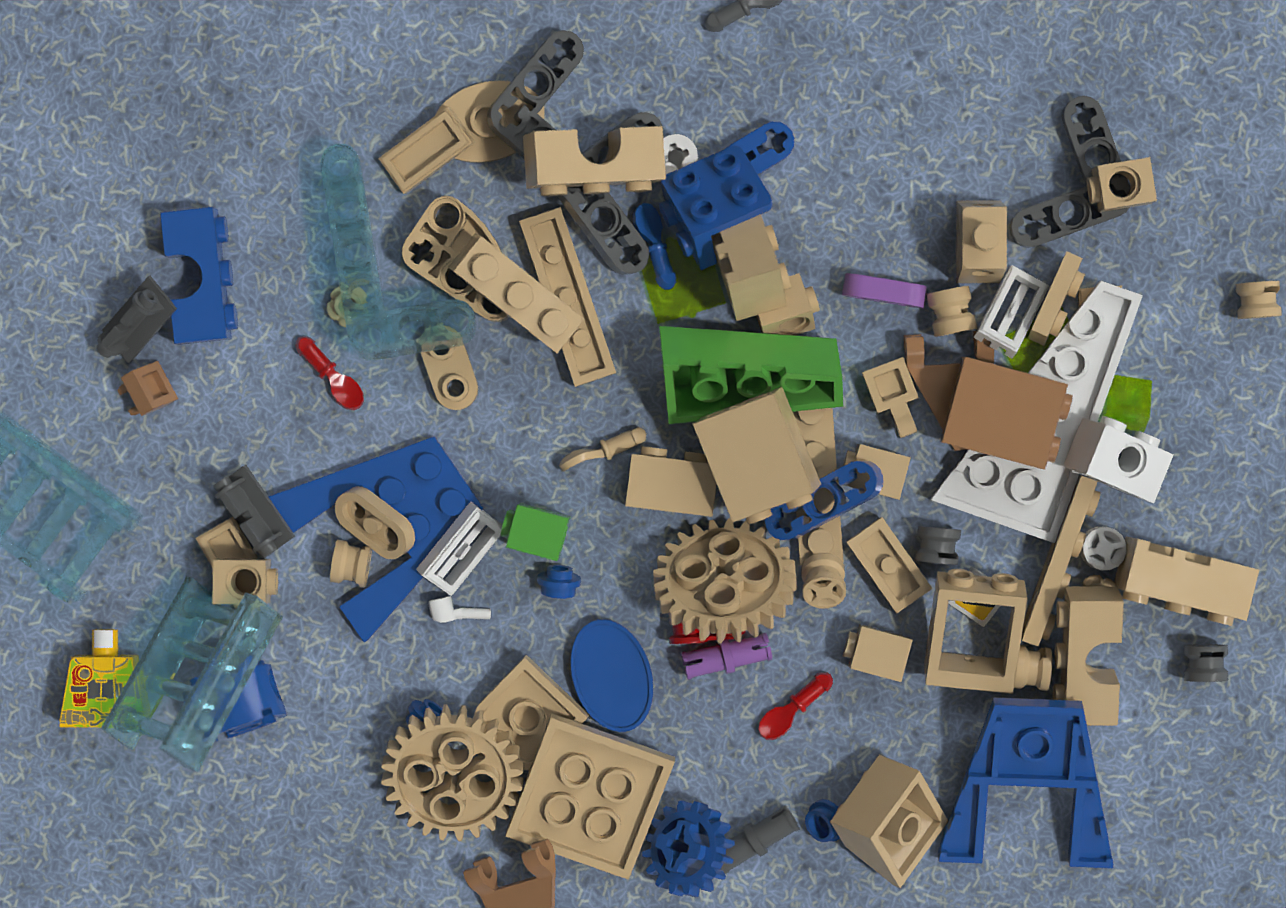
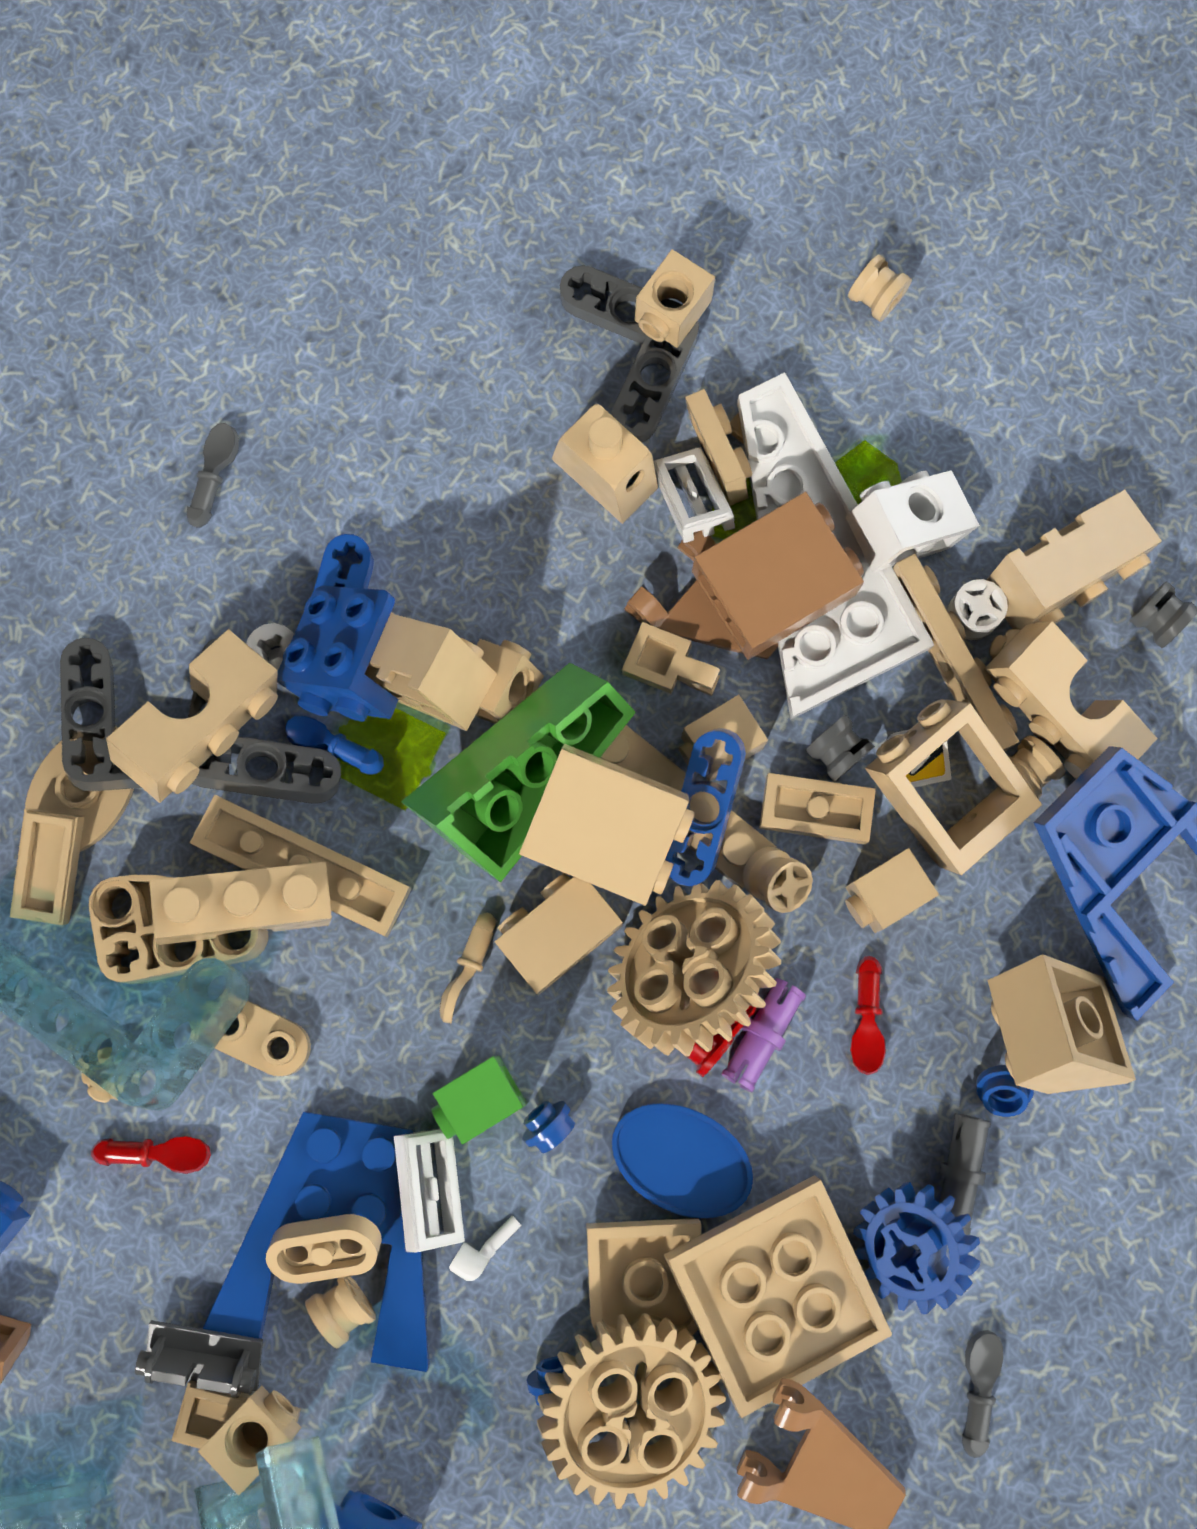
camera: 50 degrees left, 10 degrees down
(884, 290) = (568, 585): medium lavender beam -> none
(951, 311) = (639, 543): tan wheel -> none

